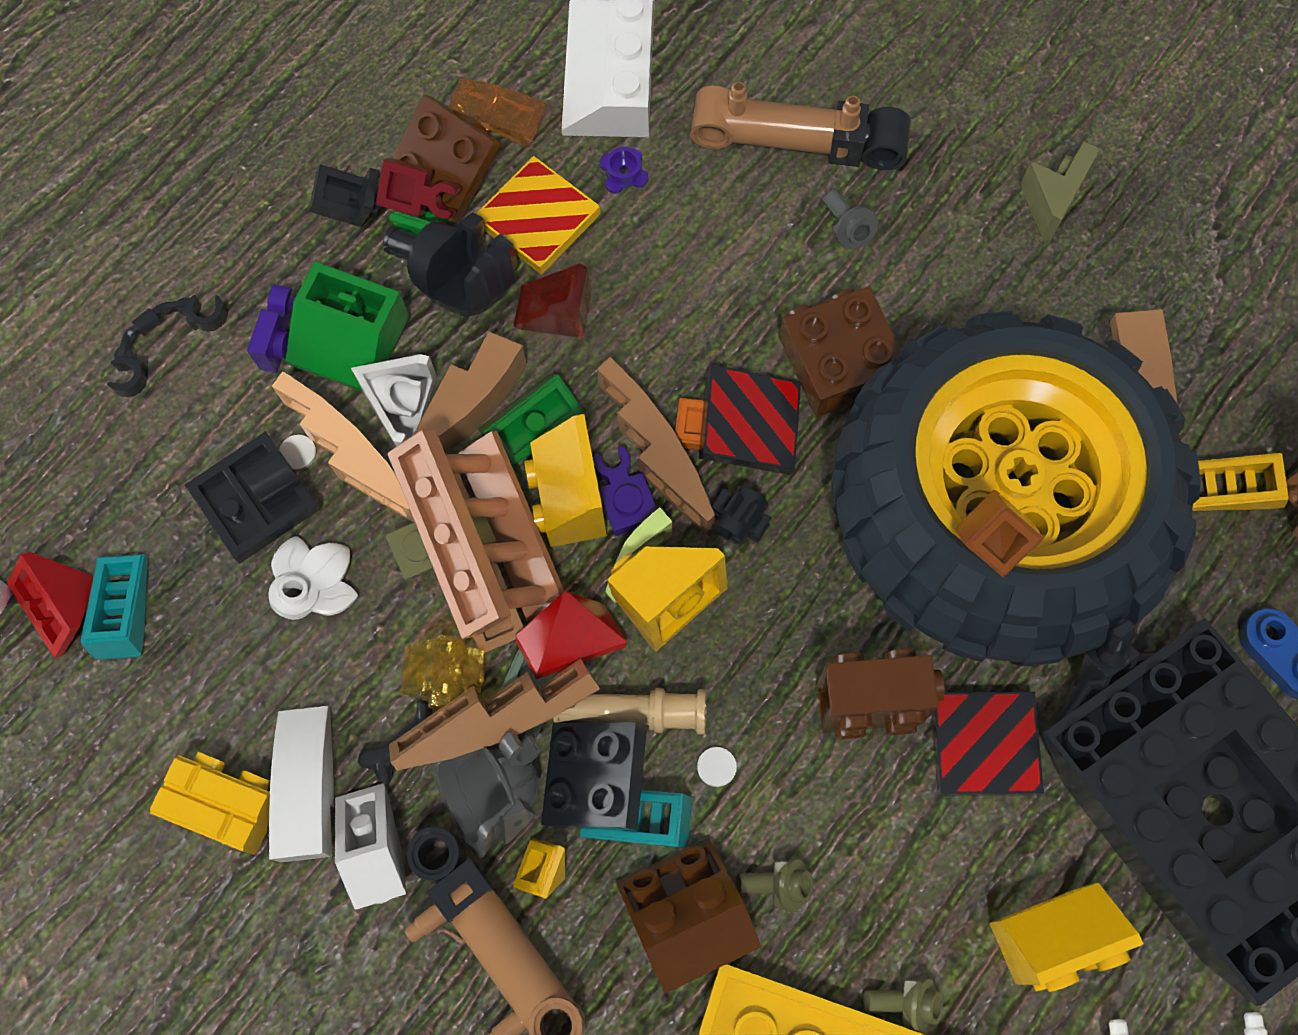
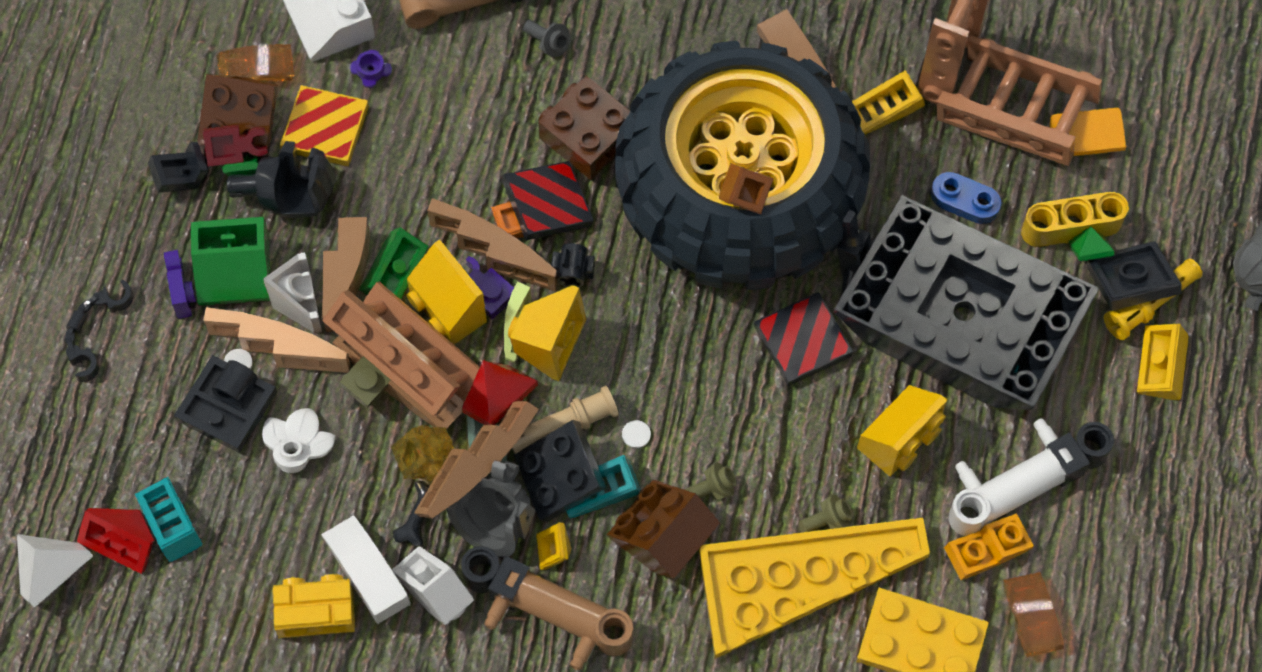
camera: 30 degrees left, 5 degrees down
(556, 303) = (371, 180): clear red slope -> none
(878, 693) = (718, 335): reddish brown brick -> none

